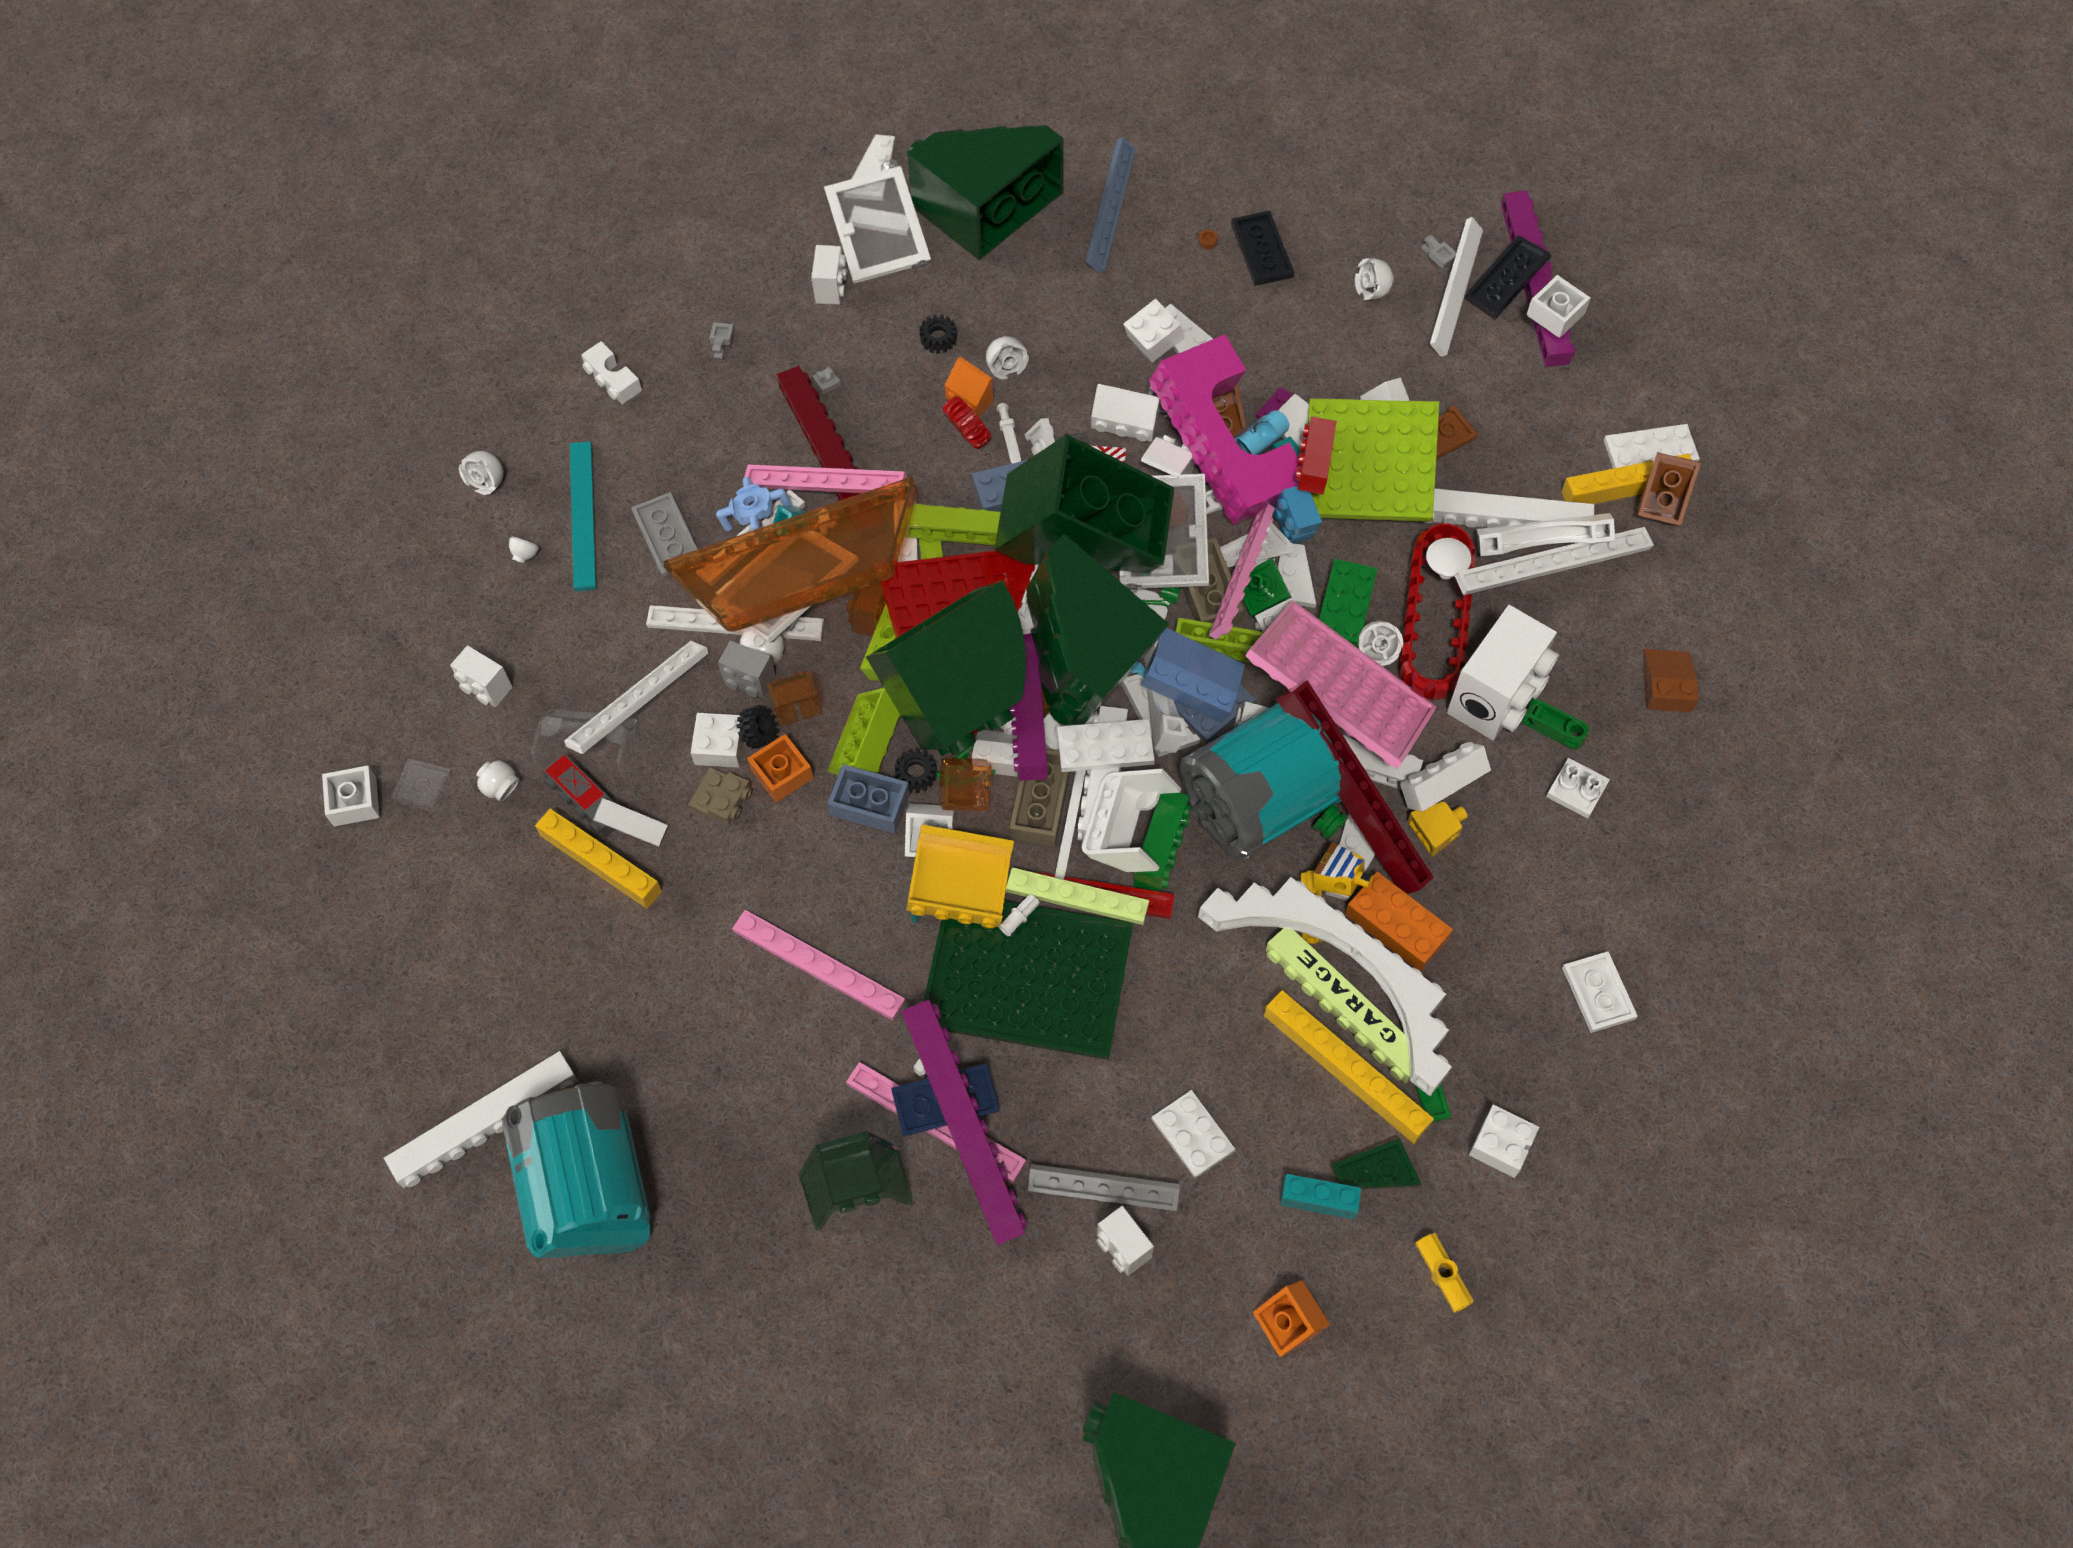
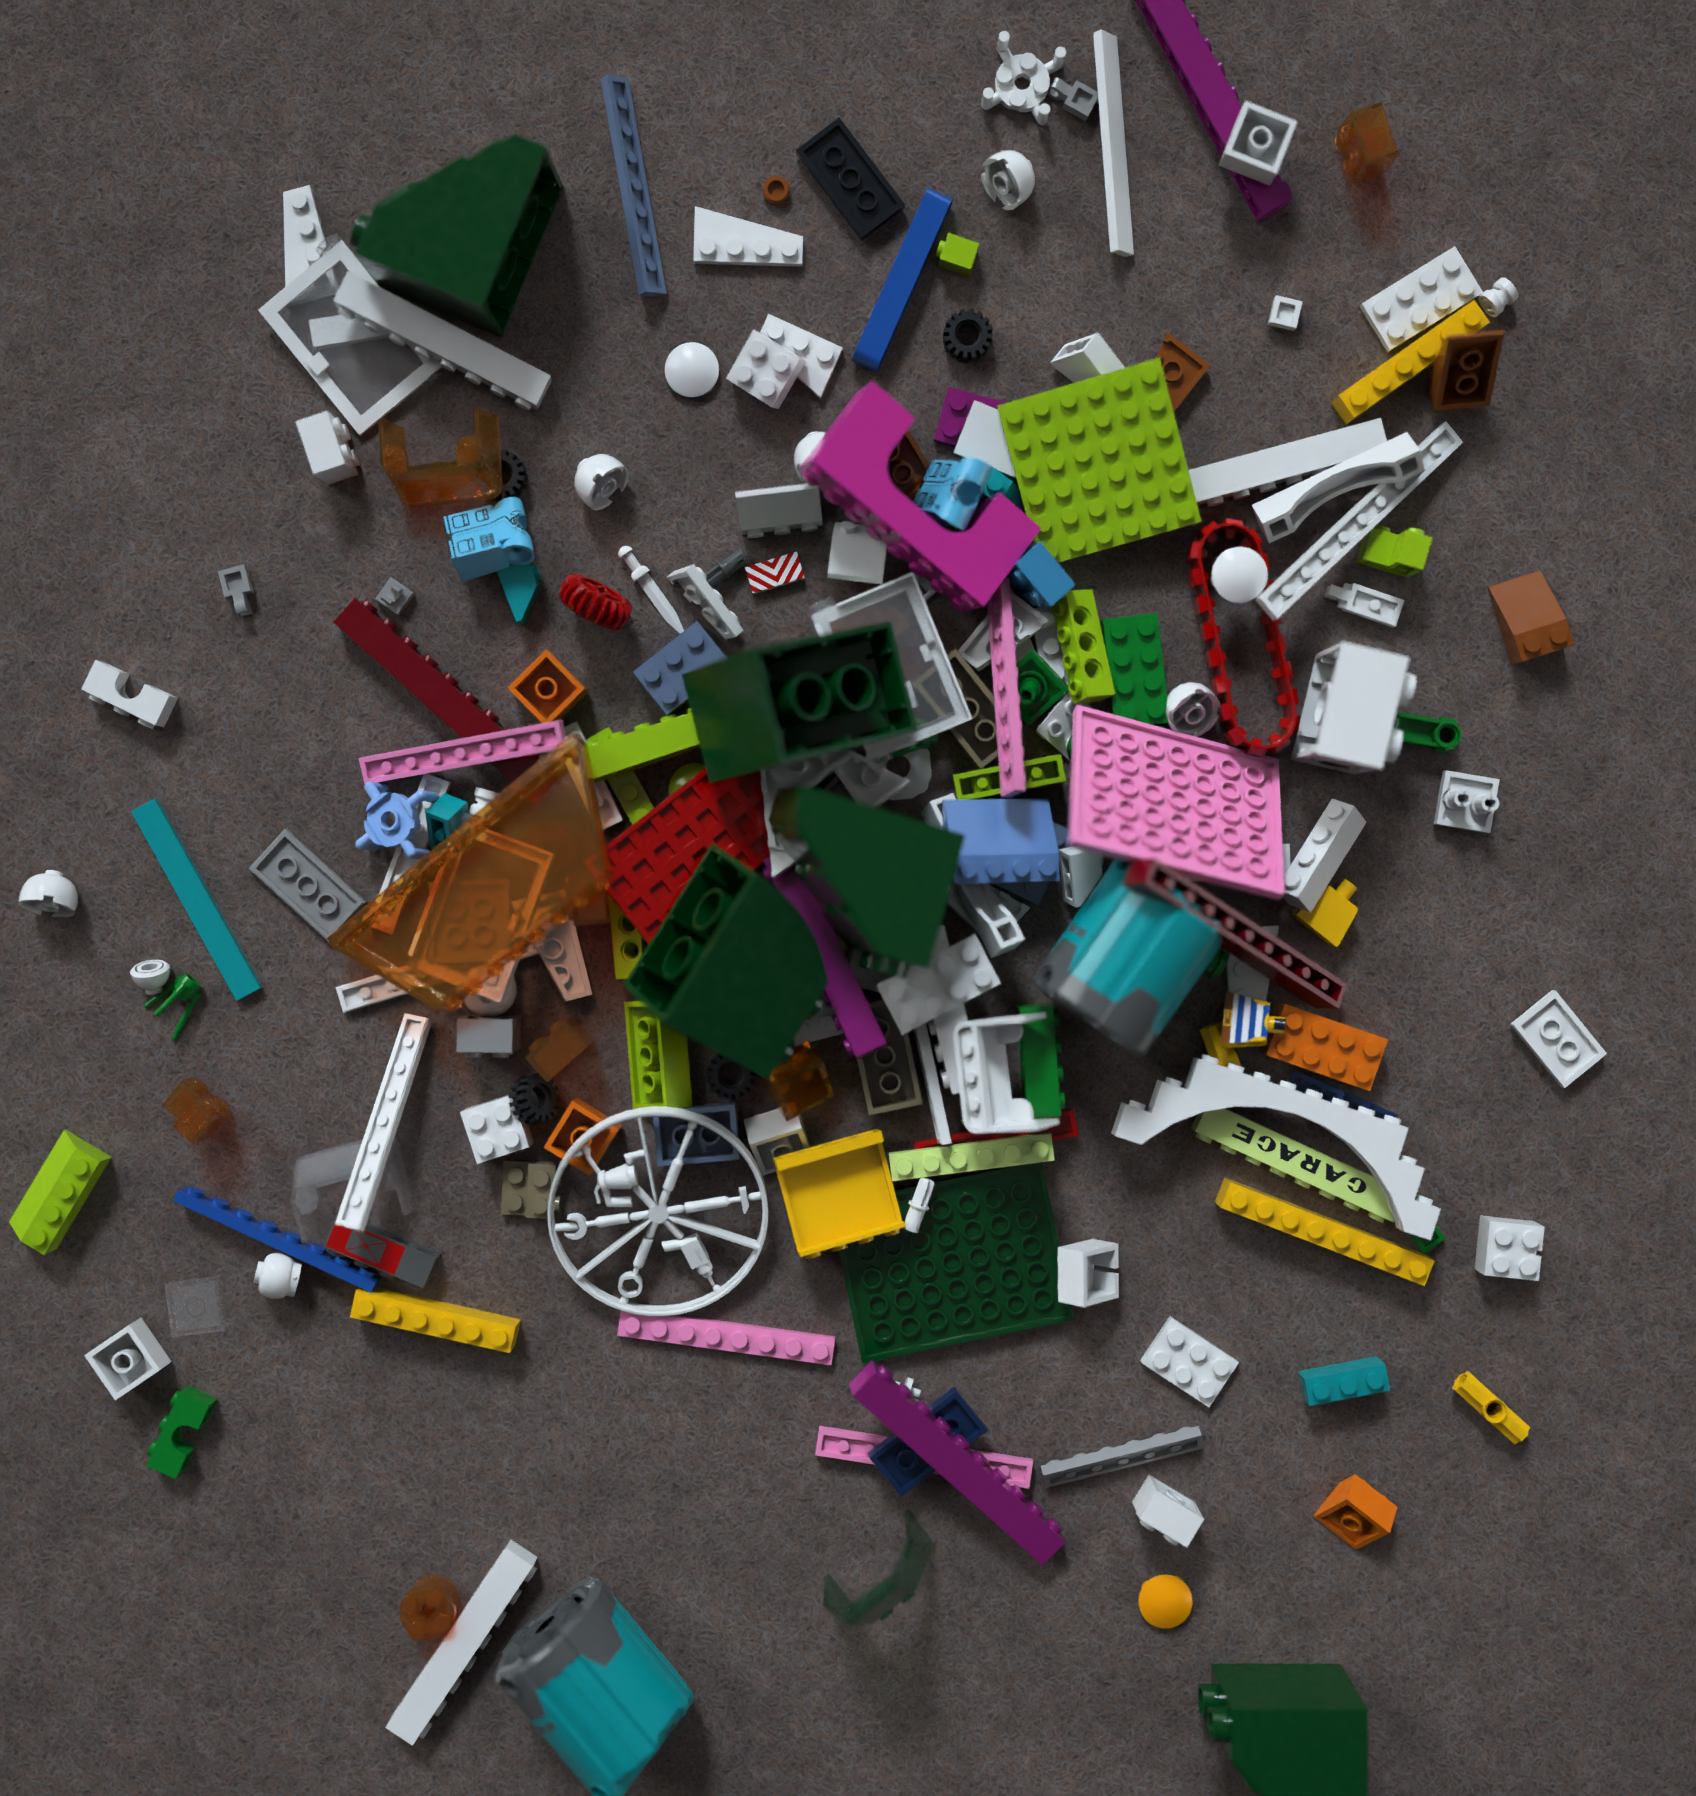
camera: 25 degrees left, 25 degrees up
(340, 876) = (170, 1452): none -> green arch
(371, 667) = (58, 1193): none -> lime slope
(464, 1069) = (417, 1611): none -> clear orange brick
(481, 676) = (193, 1164): white brick -> none
(505, 645) = (196, 1110): none -> clear orange brick
(506, 750) = (269, 1234): none -> blue plate
(541, 566) = (184, 988): none -> green plant
(630, 822) = (450, 1267): white tile -> none
(799, 799) = (626, 1177): none -> white piece
(828, 635) = (565, 961): none -> white wing
(903, 317) = (469, 478): none -> clear orange windscreen
(909, 458) = (548, 688): none -> orange brick
(910, 361) = (488, 538): none -> medium azure piece
(918, 402) = (521, 589): none -> teal slope
(939, 242) = (441, 341): none -> white brick
(970, 385) = (575, 548): orange slope -> none
(1091, 1332) = (1165, 1601): none -> light orange dish
(1101, 319) = (691, 369): none -> white dish
(1130, 1010) = (1079, 1281): none -> white piece
(1170, 259) = (741, 242): none -> white wing
(1277, 311) = (902, 280): none -> blue beam
(1306, 351) = (973, 320): none -> black tyre
(1312, 571) = (1083, 647): none -> lime brick
(1316, 455) = (1040, 501): red brick -> none
(1319, 312) = (957, 254): none -> lime brick
(1378, 1168) = (1389, 1323): dark green wing -> none
(1409, 225) = (1025, 66): none -> white plate
(1507, 276) = (1176, 109): black plate -> none
(1545, 423) = (1285, 313): none -> white plate
(1545, 618) = (1366, 603): none -> white hinge
(1576, 596) = (1395, 553): none -> lime brick
(1639, 338) = (1366, 143): none -> clear orange brick
(1712, 463) = (1496, 299): none -> white wheel

